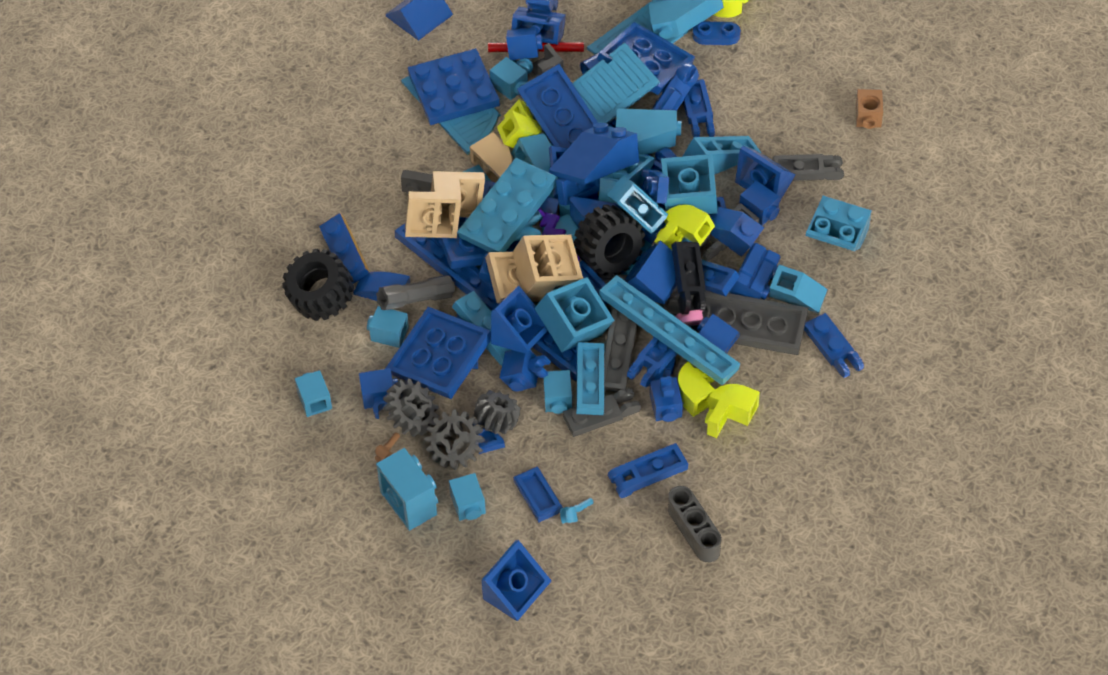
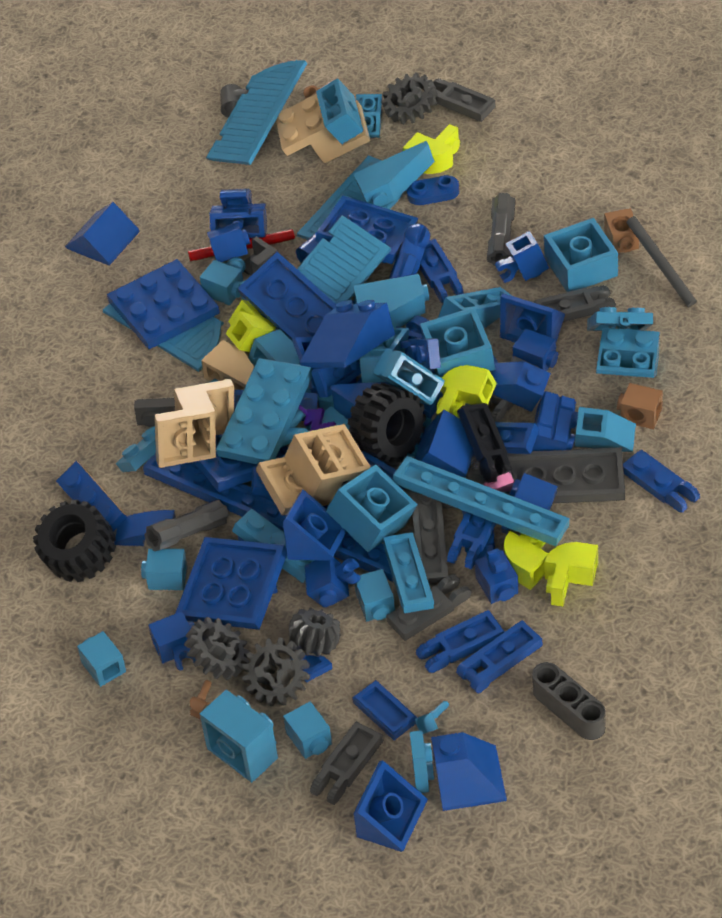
camera: 10 degrees left, 5 degrees down
(392, 218) = (138, 454): none -> dark azure plate
(492, 531) = (347, 761): none -> dark grey hinge
(552, 548) = (422, 761): none -> dark azure plate
(590, 565) = (467, 771): none -> blue slope
(618, 448) = (459, 641): none -> blue hinge
(760, 94) = (502, 215): none -> dark grey axle
(776, 114) = (525, 257): none -> blue brick
(825, 123) = (581, 255): none -> dark azure brick
(836, 273) = (641, 405): none -> medium nougat brick
(850, 193) = (609, 318): none -> dark azure plate
(894, 145) = (661, 261): none -> dark grey bar

